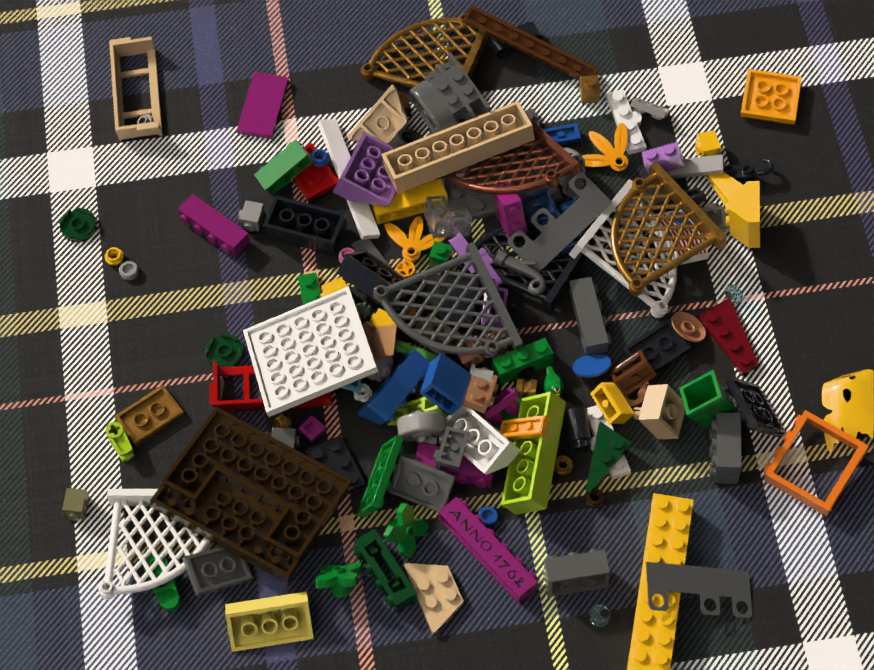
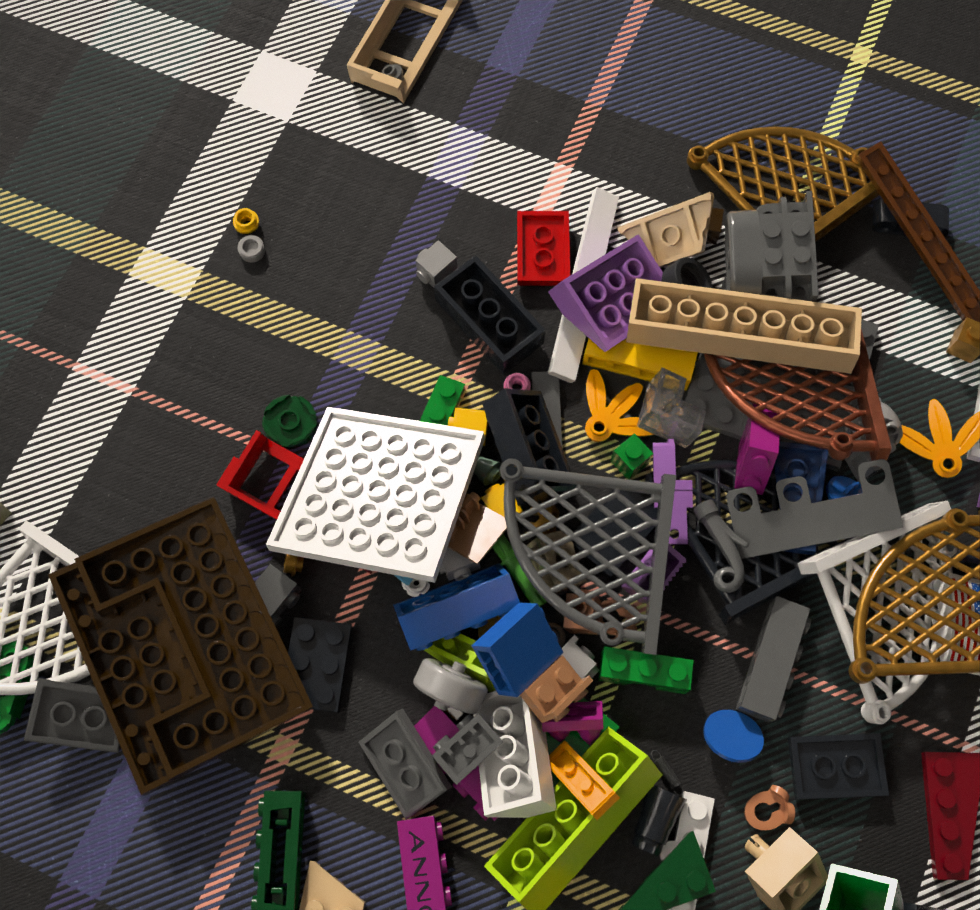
camera: 30 degrees right, 10 degrees up
(78, 225) = (234, 158): dark green tile -> none
(120, 441) = (90, 466): lime piece -> none
(149, 415) = (148, 450): pearl gold tile -> none
(213, 225) = (383, 250): magenta brick -> none
(262, 105) = (543, 130): magenta tile -> none
(269, 621) = (94, 827): light yellow slope -> none
(284, 167) = (512, 224): brick -> none
(312, 429) = (322, 593): magenta plate -> none
(319, 153) = (563, 230): blue plate -> none
(339, 578) = (213, 829): green plant -> none
(380, 476) = (355, 721): green plate -> none
(405, 529) = (337, 816): green plant -> none
(406, 267) = (576, 445): light orange wheel -> none
(489, 516) = (462, 863): blue tile -> none
(526, 389) = (626, 712): pearl gold wheel -> none
(553, 382) = (664, 731): green animal -> none
(563, 460) = (616, 856): pearl gold plate -> none
(564, 134) = (896, 382): blue plate -> none
(612, 403) = (726, 812): yellow brick -> none
(635, 376) = (781, 796): reddish brown tile -> none
(688, 326) = (901, 762): nougat dish -> none

